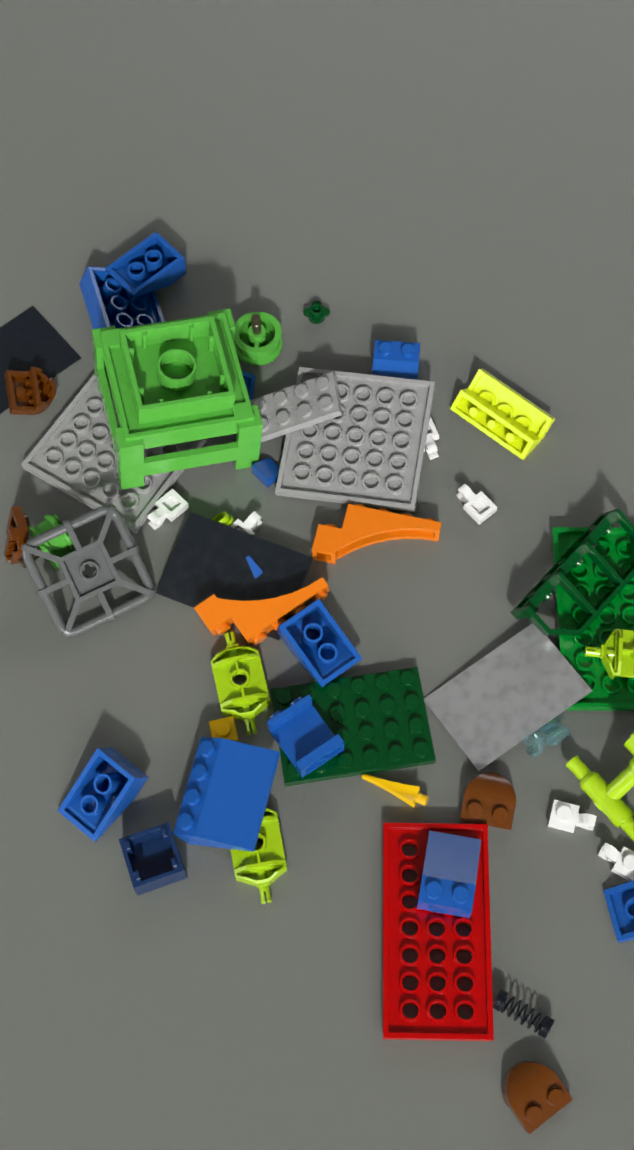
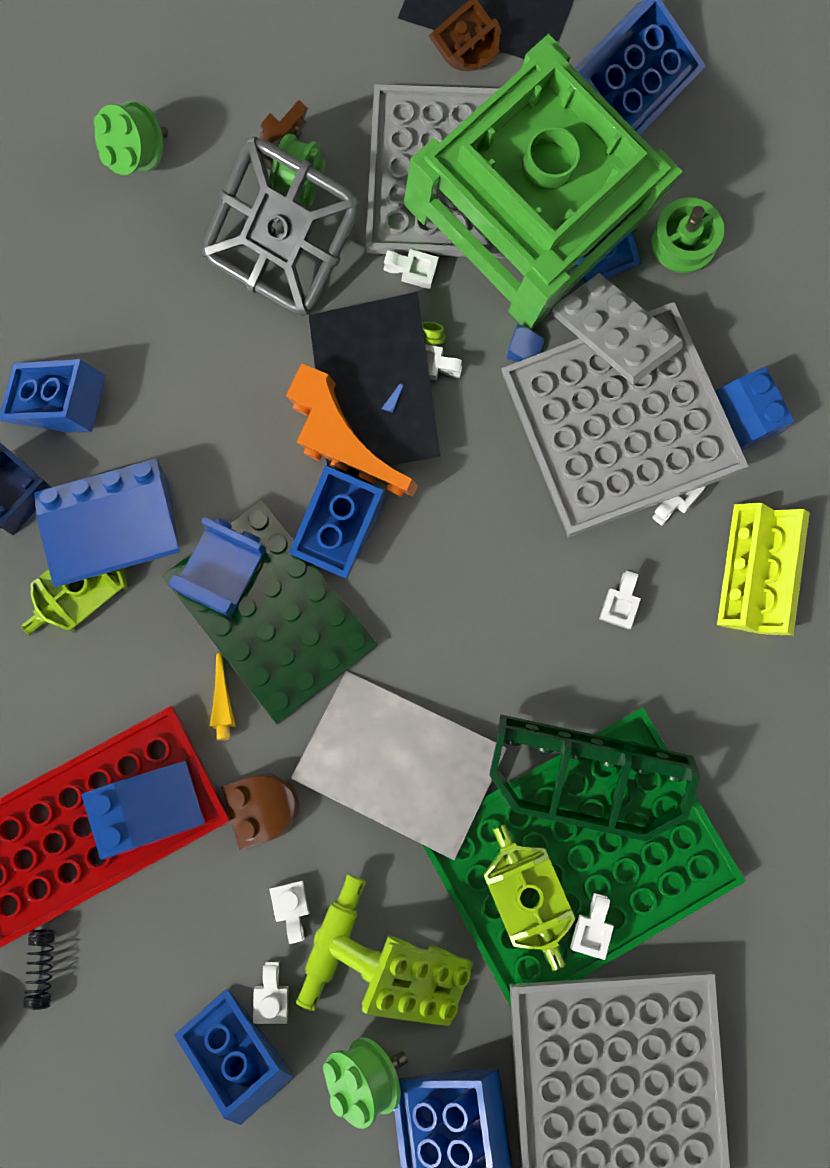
camera: 60 degrees right, 15 degrees up
(148, 266) = (702, 59): blue slope -> none
(224, 728) = (188, 479): yellow plate -> none
(243, 700) = (242, 485): lime plate -> none
(316, 318) = (766, 289): dark green plate -> none
(369, 526) = (517, 493): orange arch -> none
(549, 734) = (374, 835): clear light blue plate -> none

